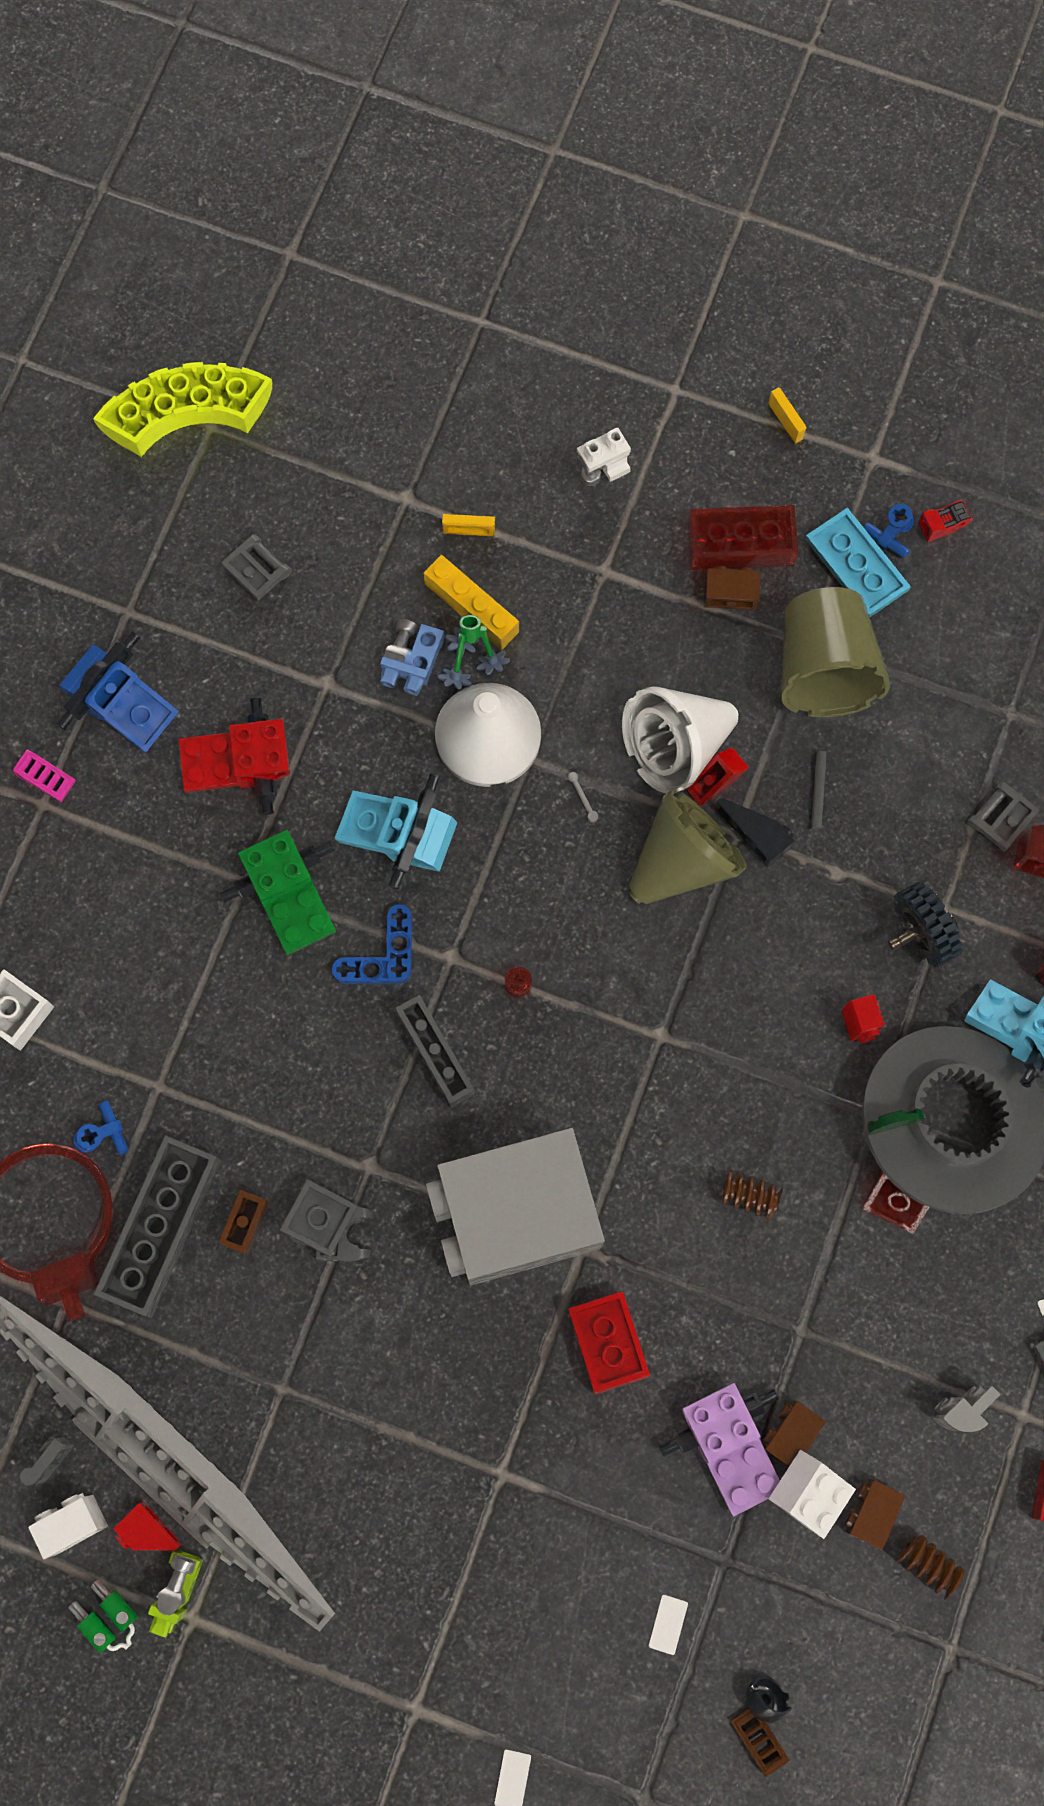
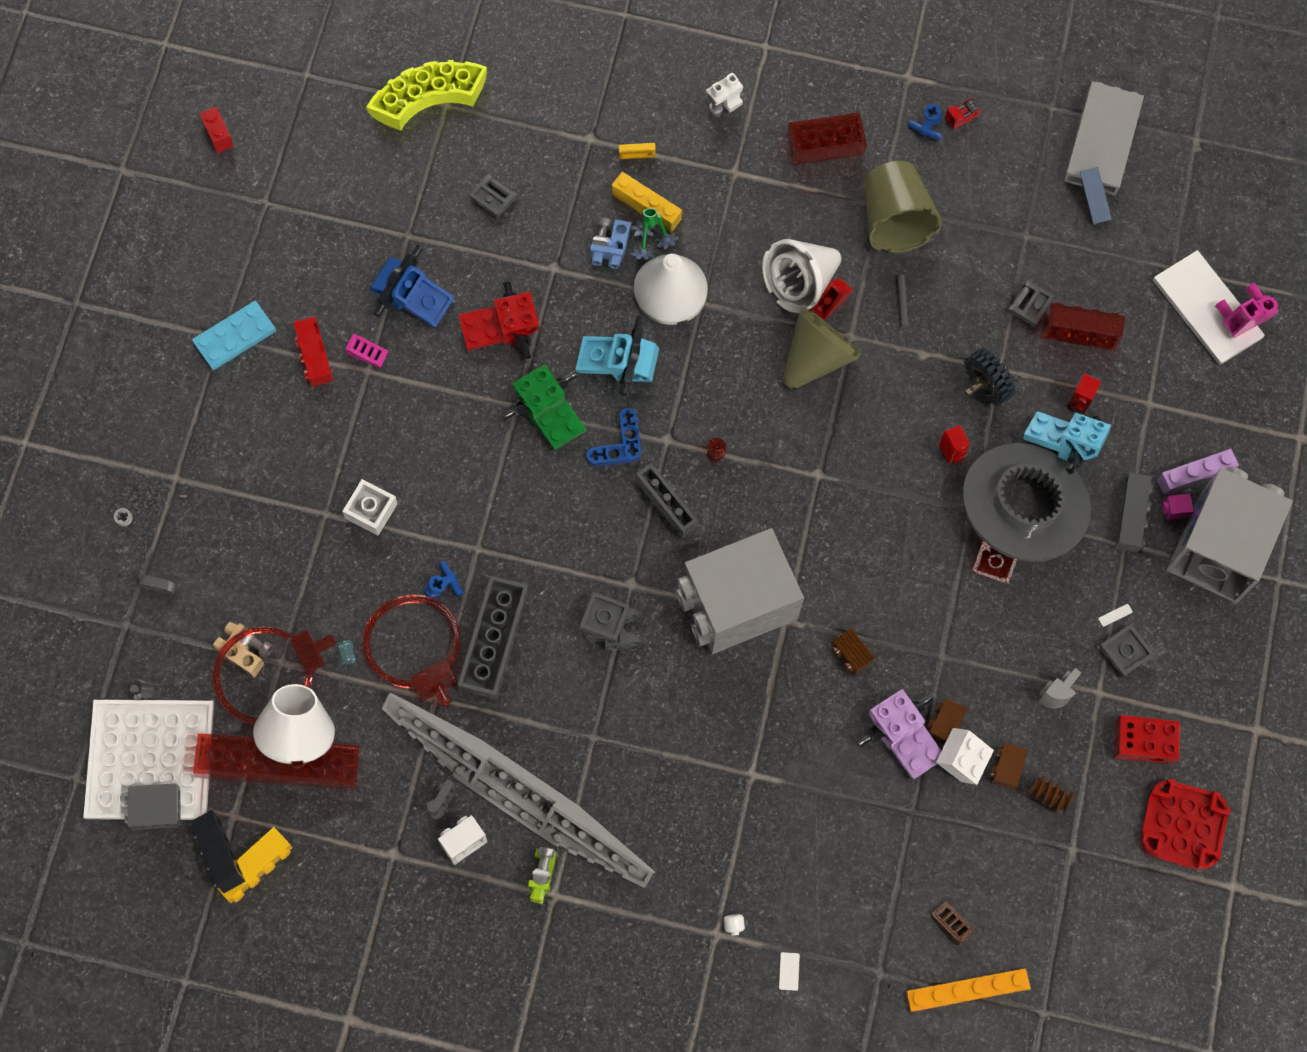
camera: 10 degrees left, 5 degrees down
(95, 1630) = (489, 908): green piece -> none
(145, 1531) = (514, 839): red slope -> none
(244, 1222) = (552, 628): reddish brown brick -> none
(442, 1699) = (734, 924): none -> white piece
(592, 815) = (750, 335): light grey hinge -> none
(608, 1343) = (813, 677): red piece -> none
(668, 1624) = (879, 857): white sticker -> none
(672, 1311) = (852, 652): none -> reddish brown brick
(732, 588) = (824, 173): reddish brown brick -> none
(751, 1195) = (895, 570): reddish brown piece -> none
(758, 831) = (866, 332): black slope -> none
(767, 1700) = (953, 894): black hair -> none
(787, 415) = (845, 54): yellow tile -> none
(857, 561) = (907, 145): medium azure plate -> none
(895, 1120) = (985, 503): dark green tile -> none

